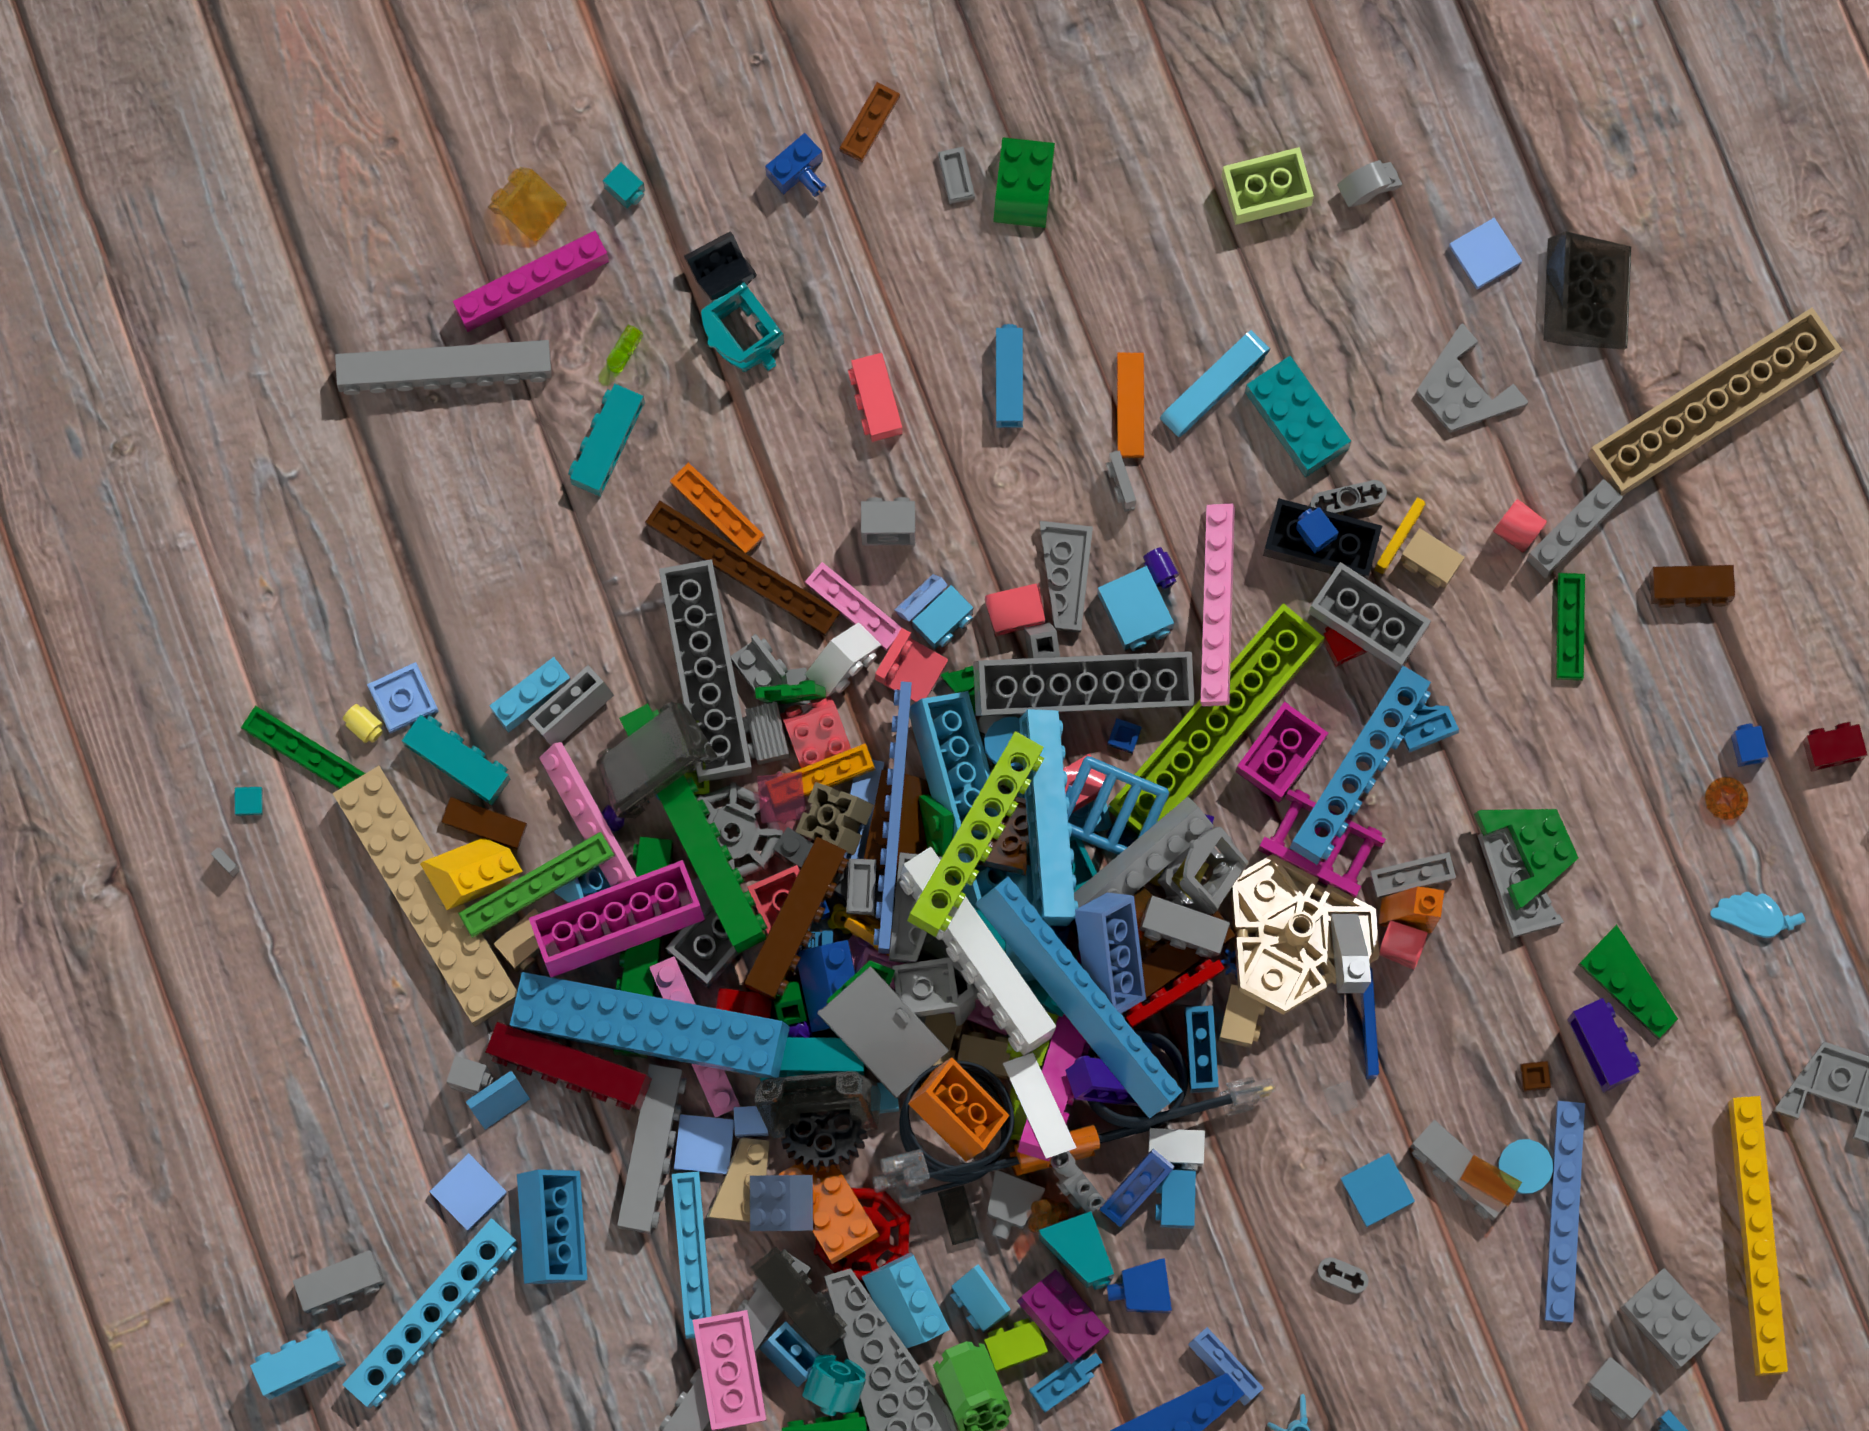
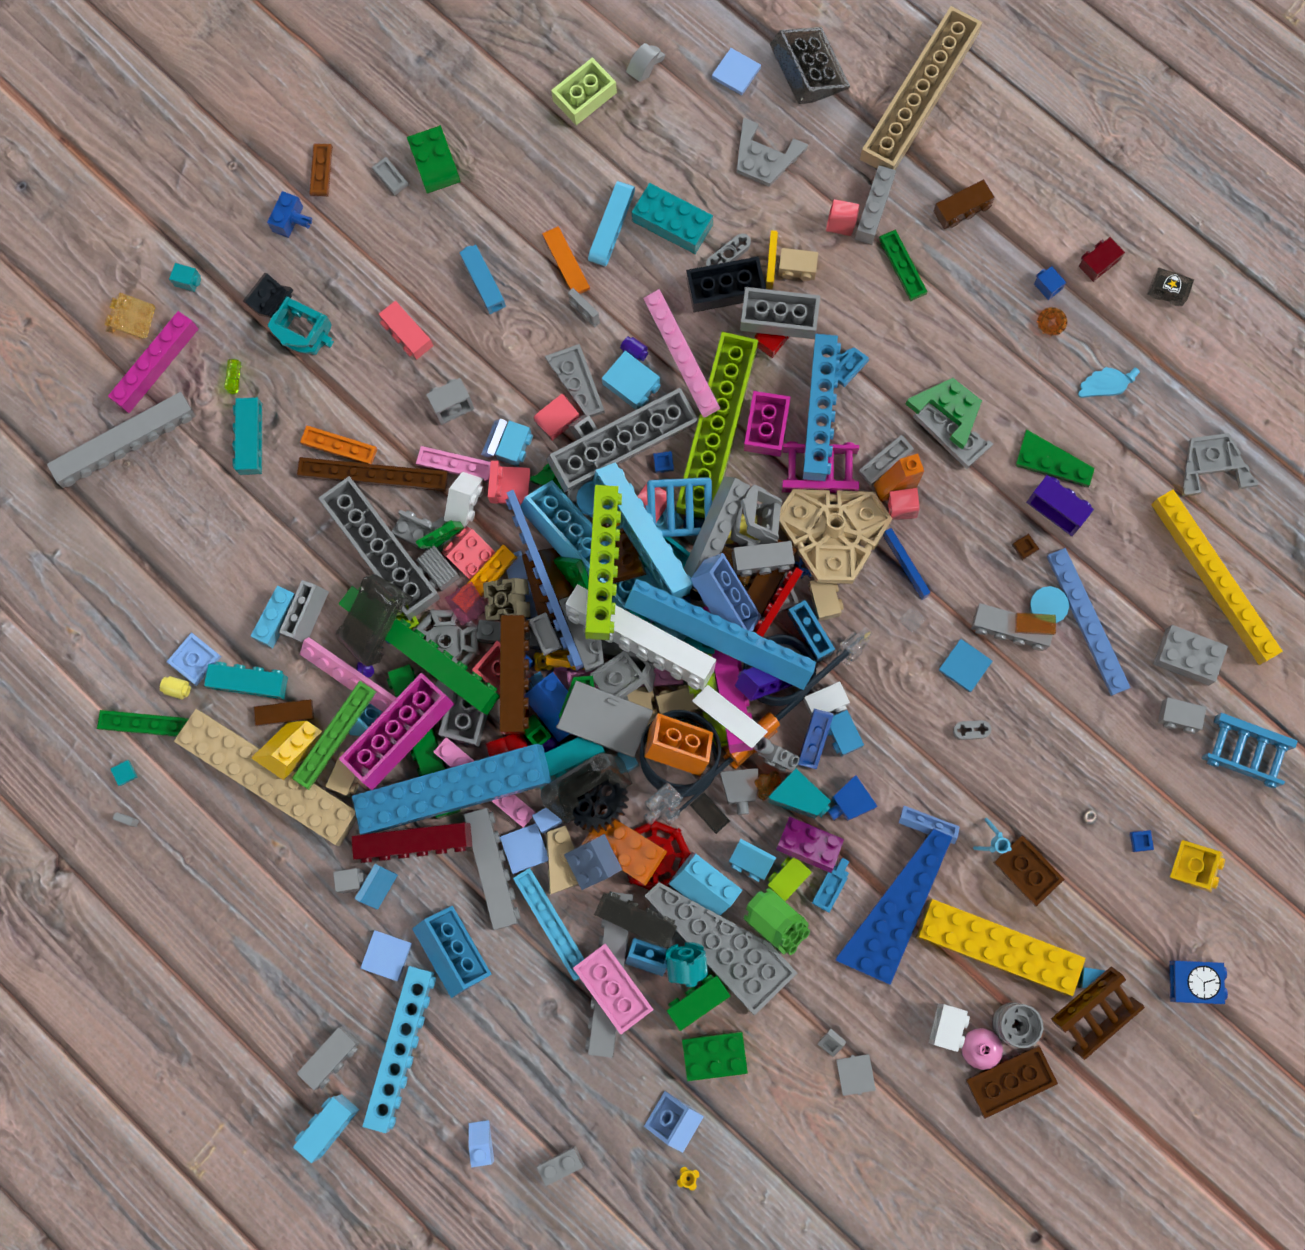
camera: 20 degrees left, 0 degrees up
(1316, 529) = (720, 275): blue brick -> none
(1350, 954) = (875, 526): light grey slope -> none

